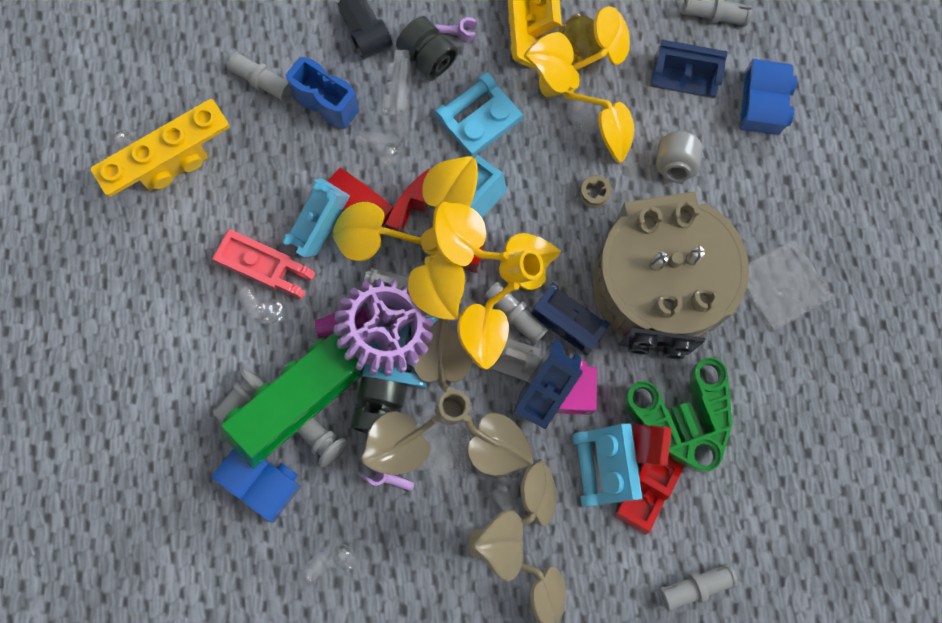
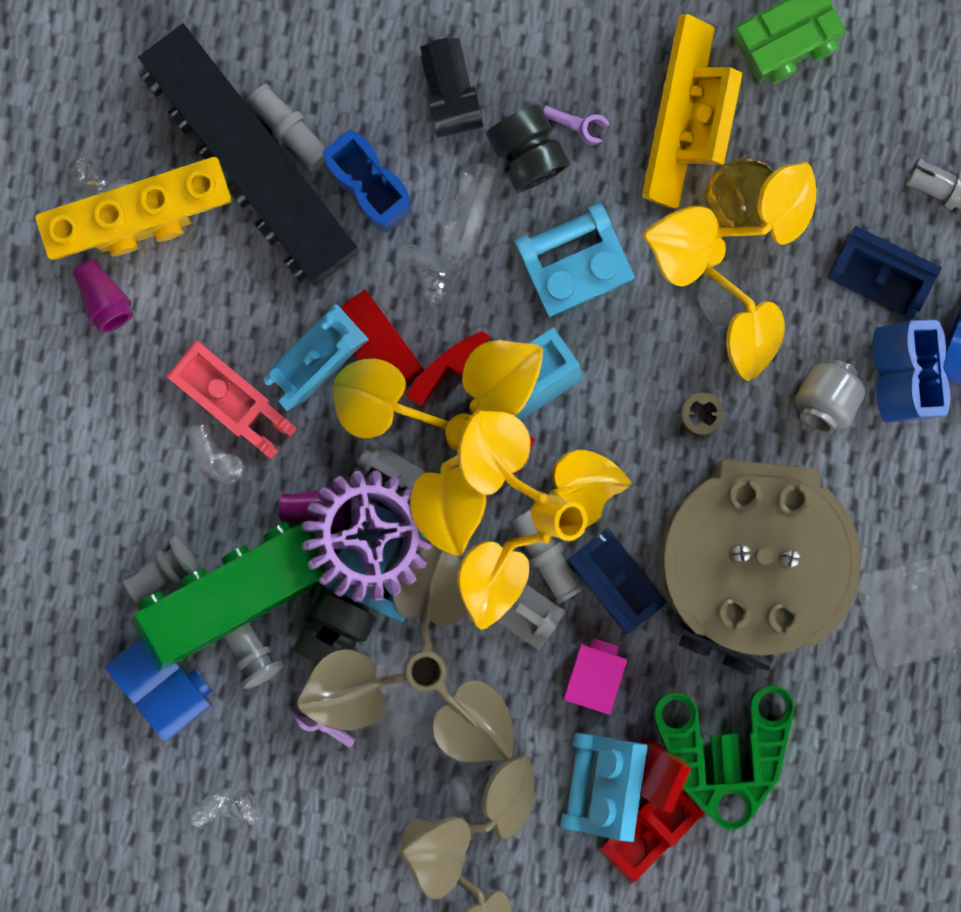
camera: 20 degrees right, 10 degrees up
(156, 220) = (103, 300): none -> magenta cone
(241, 101) = (248, 155): none -> black brick
(548, 385) = (557, 667): dark blue hinge -> none
(729, 123) = (911, 371): none -> blue brick

